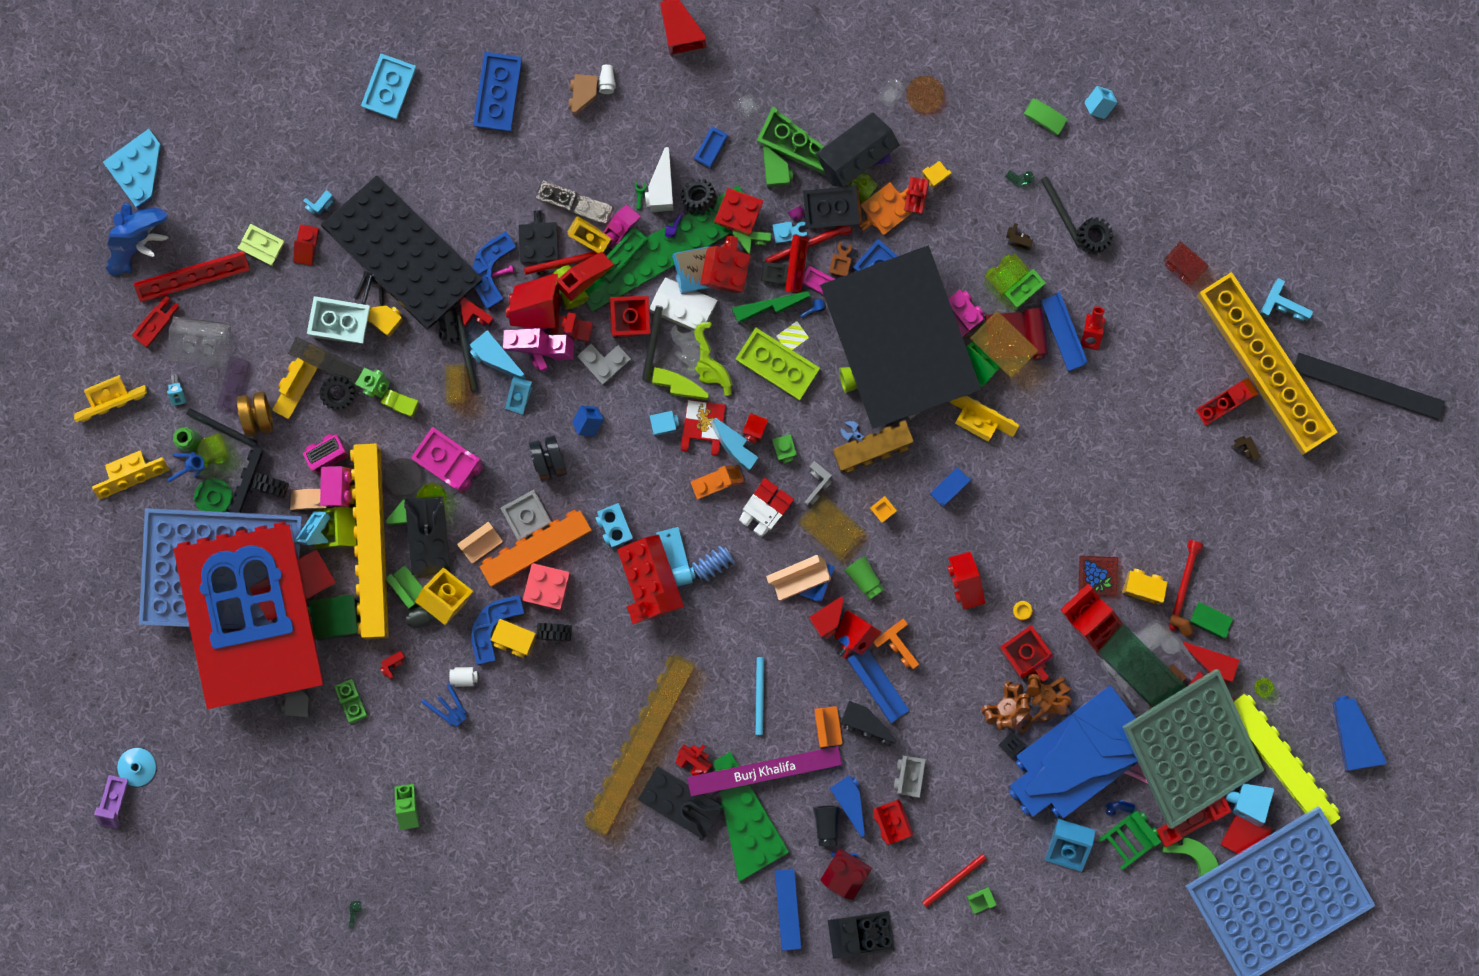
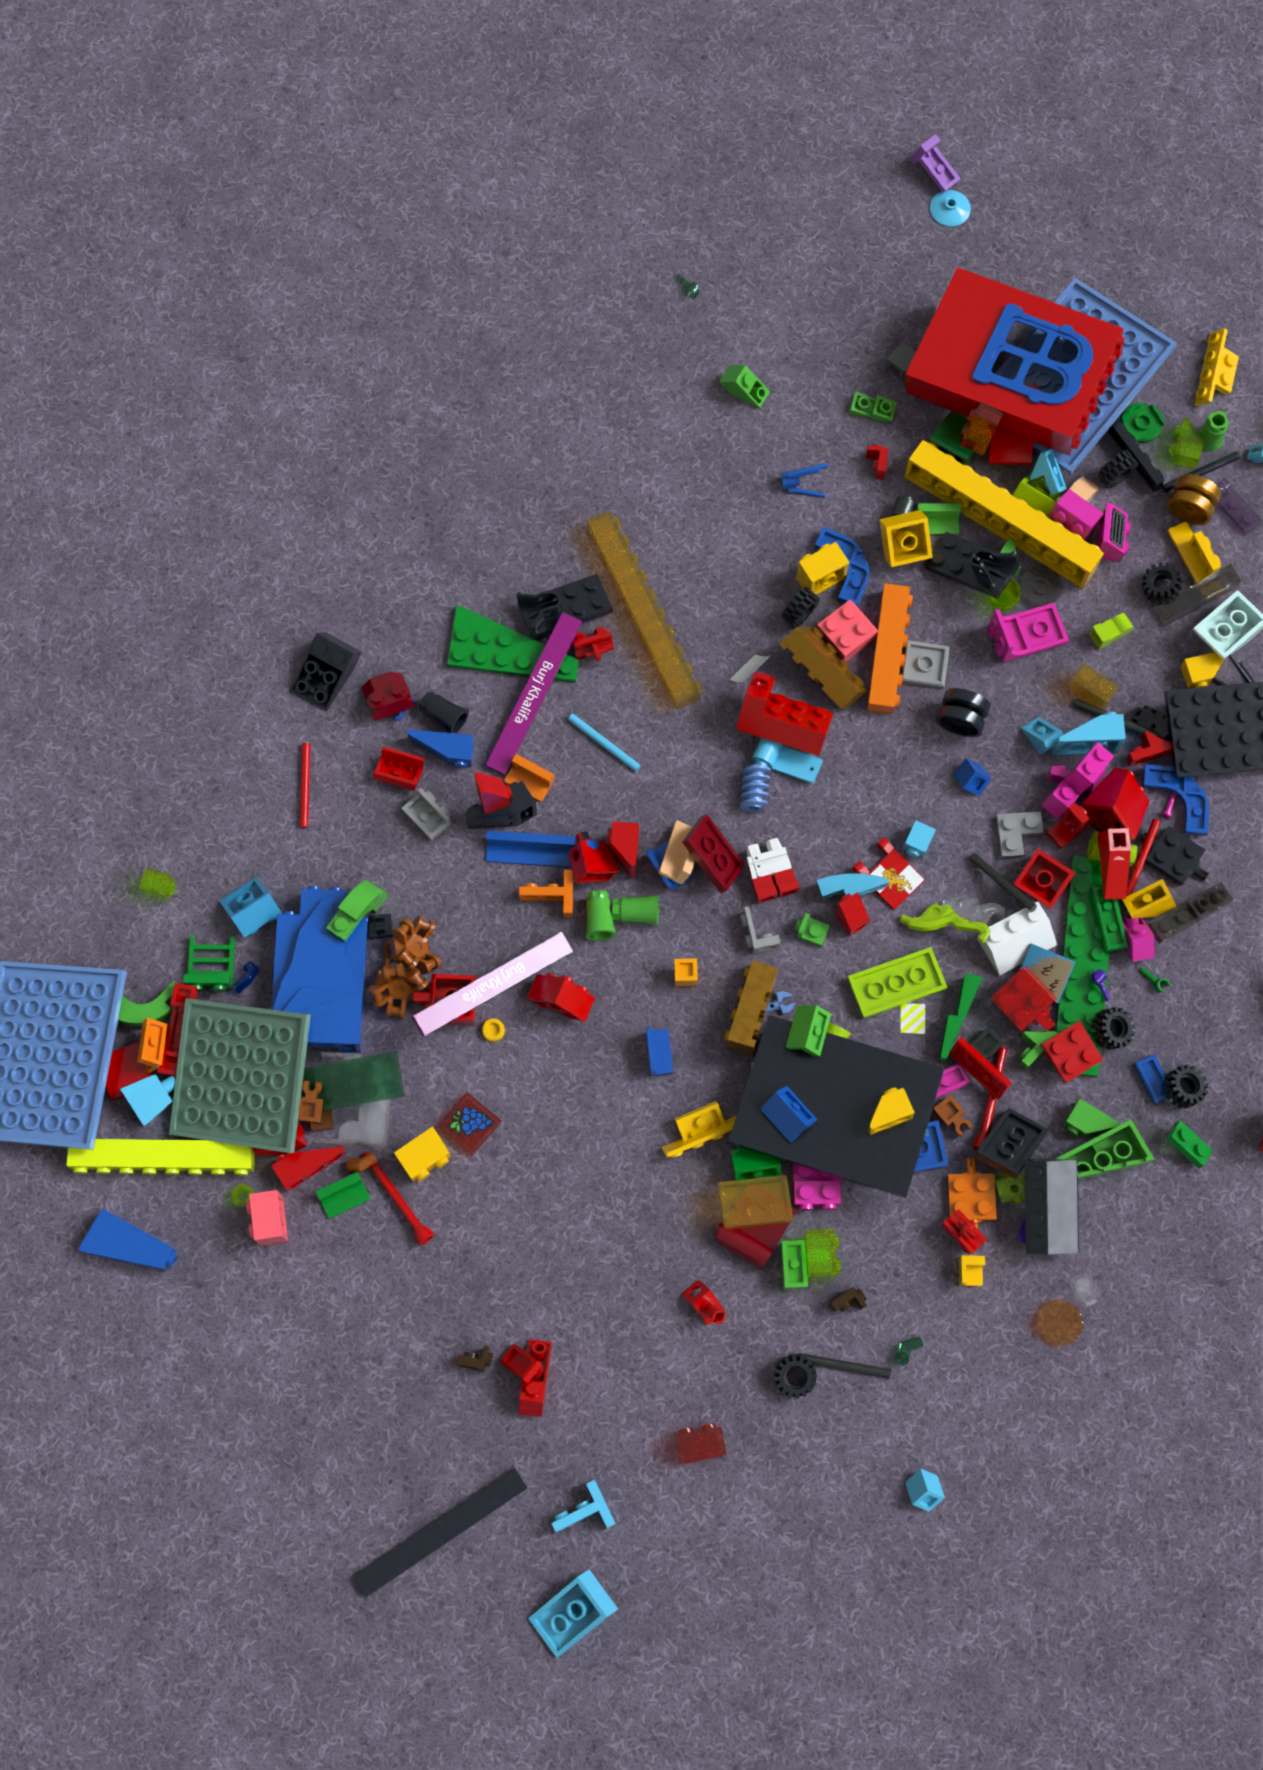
camera: 125 degrees right, 10 degrees down
(193, 464) = (1186, 415): blue plant -> none
(323, 599) = (981, 428): none -> clear red brick
(373, 383) = (1148, 618): bright green brick -> none
(463, 676) = (821, 509): white brick -> none
(480, 542) = (931, 608): light nougat panel -> none
(586, 582) = (824, 665): none -> pearl gold wedge
(618, 524) = (855, 734): medium azure brick -> none
(627, 633) = (752, 665): none -> white sticker
(660, 188) = (1151, 1001): white slope -> none
(679, 385) = (945, 879): lime slope -> none
(709, 129) = (1176, 1092): none -> black tyre
(717, 481) = (827, 848): orange bracket -> none
(740, 92) = (1189, 1144): none -> green plate
(784, 231) = (1020, 1087): medium azure plate -> none
(787, 552) = (713, 853): none -> dark red plate
(788, 910) = (399, 626): blue slope -> none
(796, 213) = (1029, 1109): magenta hinge -> none
(818, 306) = (924, 1058): blue hand -> none
(831, 527) = (706, 918): clear yellow plate -> none
(864, 393) = (808, 1029): none -> bright green panel
(870, 729) = (492, 792): none -> red slope
(879, 296) = (891, 1110): none -> yellow slope
(889, 599) = (599, 917): none -> bright green plant
(933, 362) = (788, 1113): none -> blue panel
(981, 900) = (268, 794): bright green panel -> none
(996, 631) = (491, 984): none -> tile
(1017, 765) = (354, 907): none -> bright green arch
(1045, 116) = (950, 1422): bright green slope -> none
(1063, 332) = (724, 1272): blue panel -> none
(1091, 617) = (433, 1083): red bracket -> none
(1105, 921) = (158, 884): none -> clear neon green brick
(1177, 682) = (310, 1105): none -> dark orange plate
(1217, 828) = (152, 1044): none -> orange panel
(1227, 415) = (520, 1363): none -> red tile
(1266, 363) = (540, 1444): yellow brick -> none
(1267, 655) = (267, 1218): none -> coral brick
(1350, 263) = (573, 1613): none -> medium azure slope

